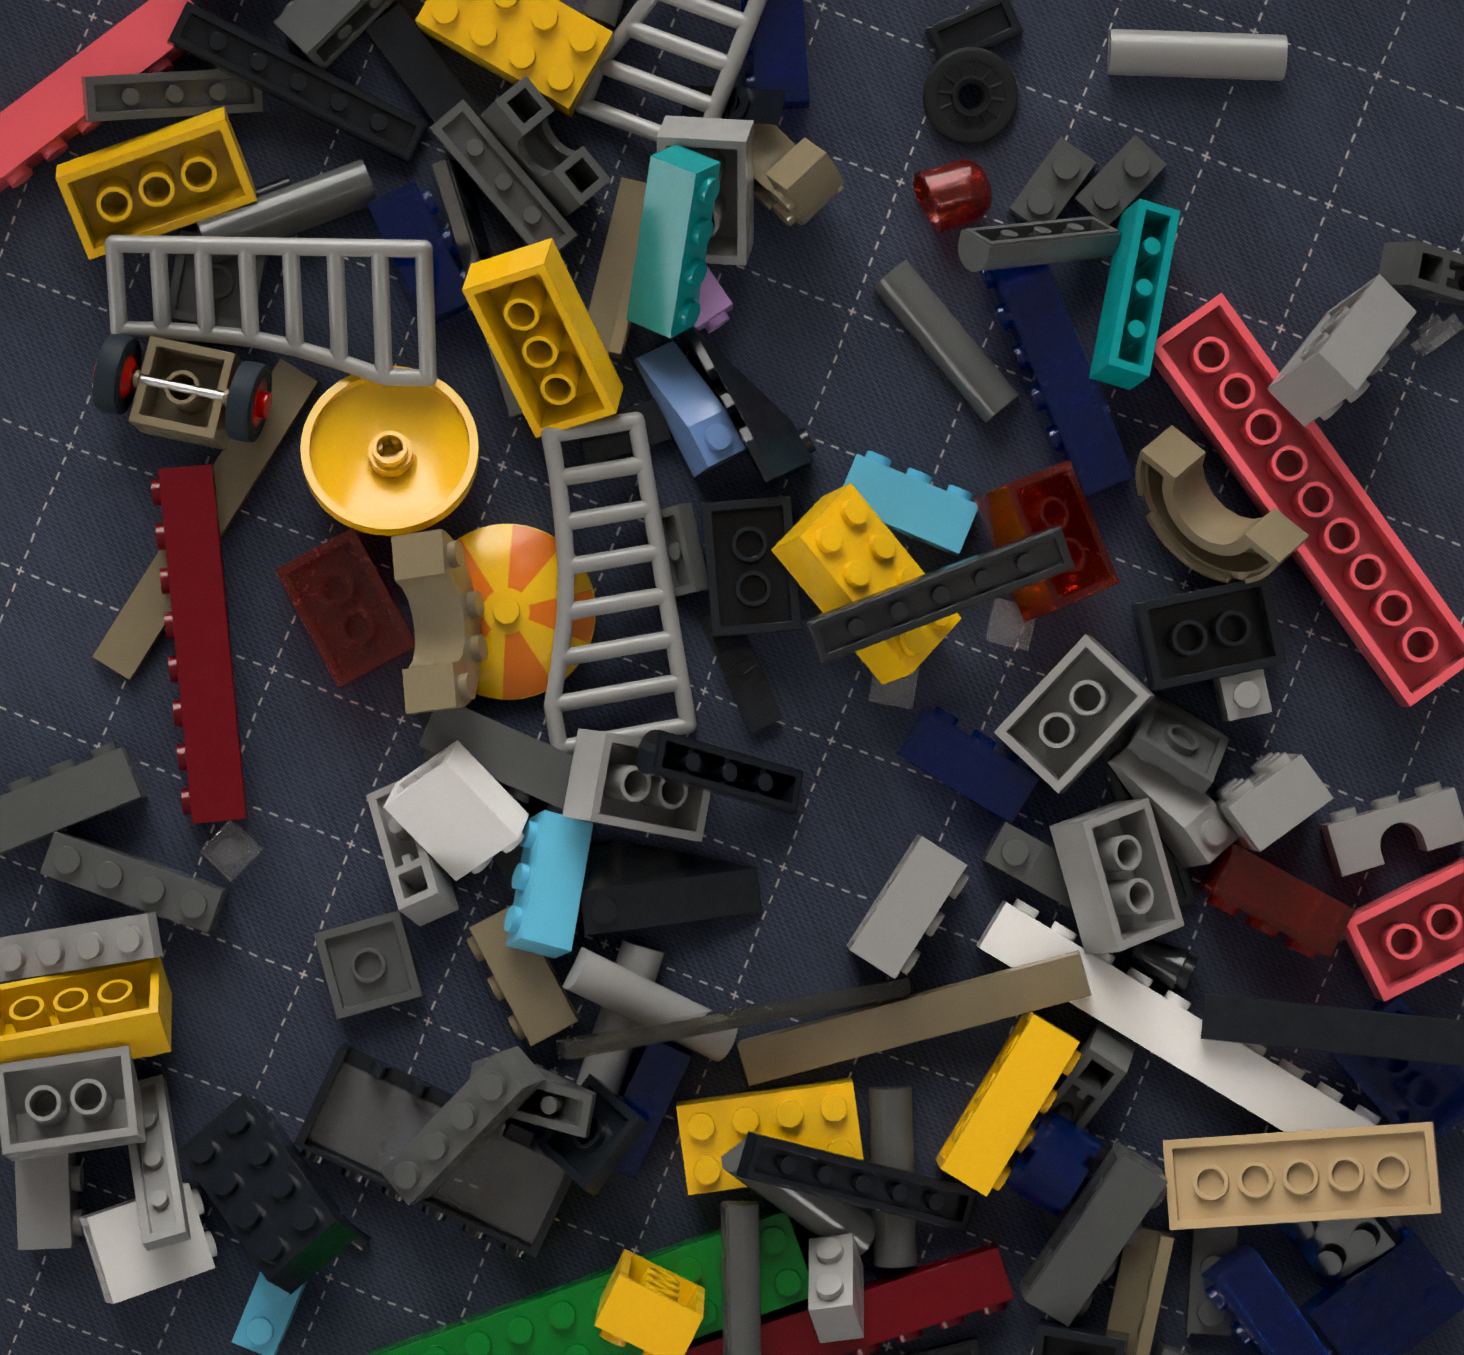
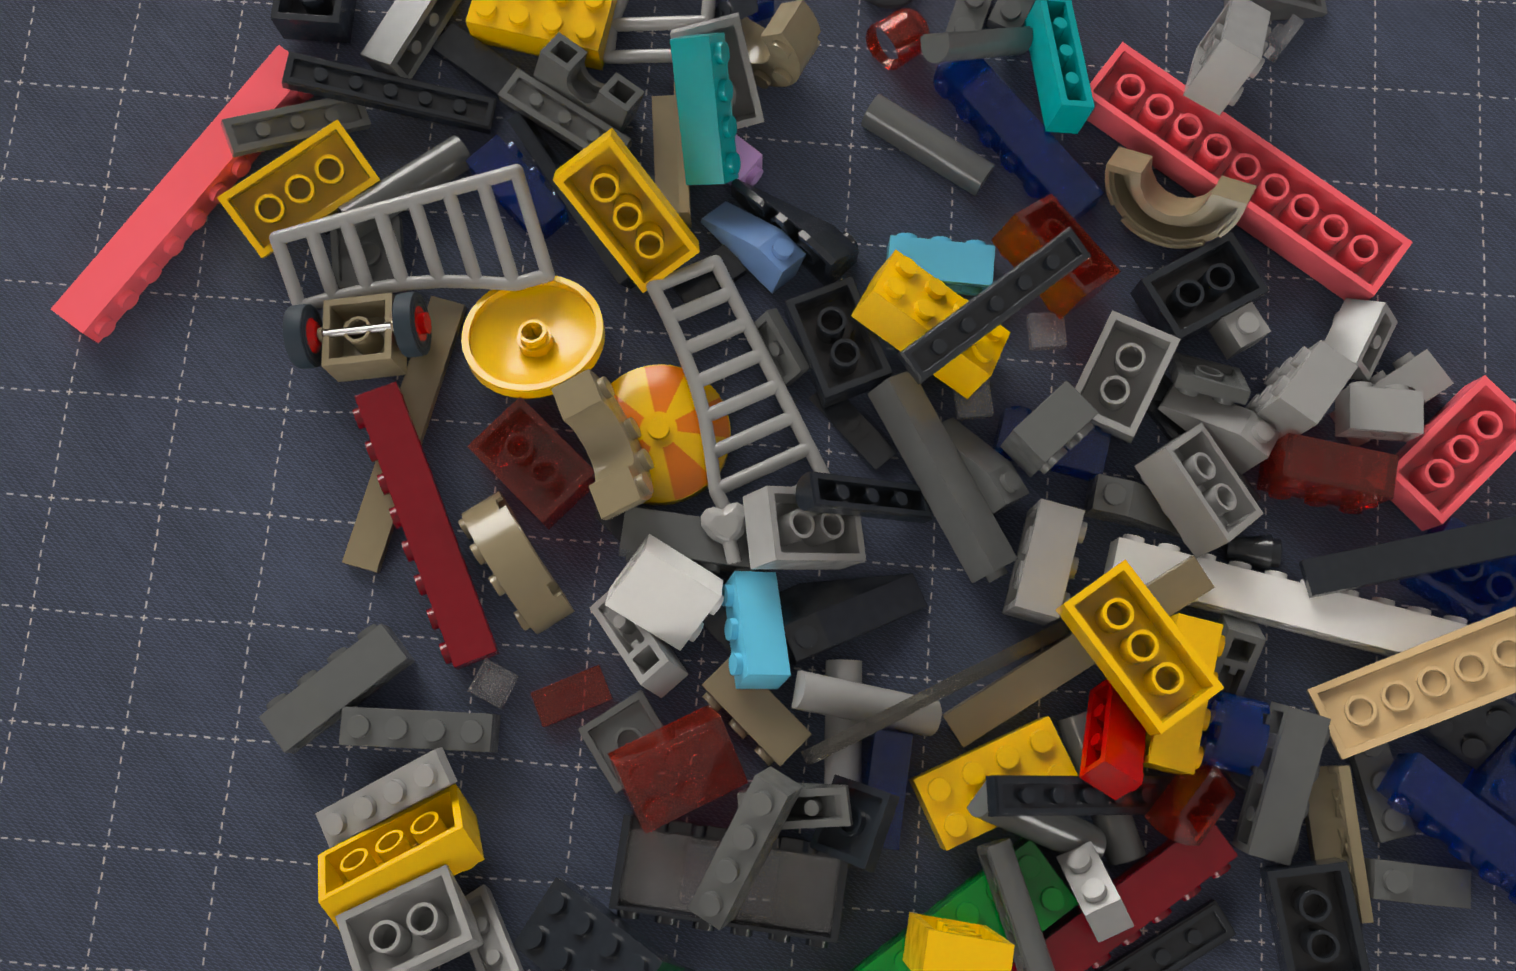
camera: 15 degrees left, 10 degrees down
(291, 717) = (514, 564): none -> dark tan brick
(317, 892) = (571, 696): none -> clear red plate
(414, 1014) = (677, 768): none -> clear red brick
(549, 758) = (726, 528): none -> light grey rock
(823, 772) = (942, 477): none -> dark grey brick
(869, 767) = (989, 469): none -> dark grey slope
(918, 1128) = (1112, 744): none -> red brick
(958, 759) = (1054, 424): none -> dark grey brick
(966, 1042) = (1139, 649): none -> yellow brick
(981, 1228) = (1191, 805): none -> clear red brick
(1359, 850) = (1379, 412): none -> light grey brick
(1378, 749) = (1361, 333): none -> light grey brick

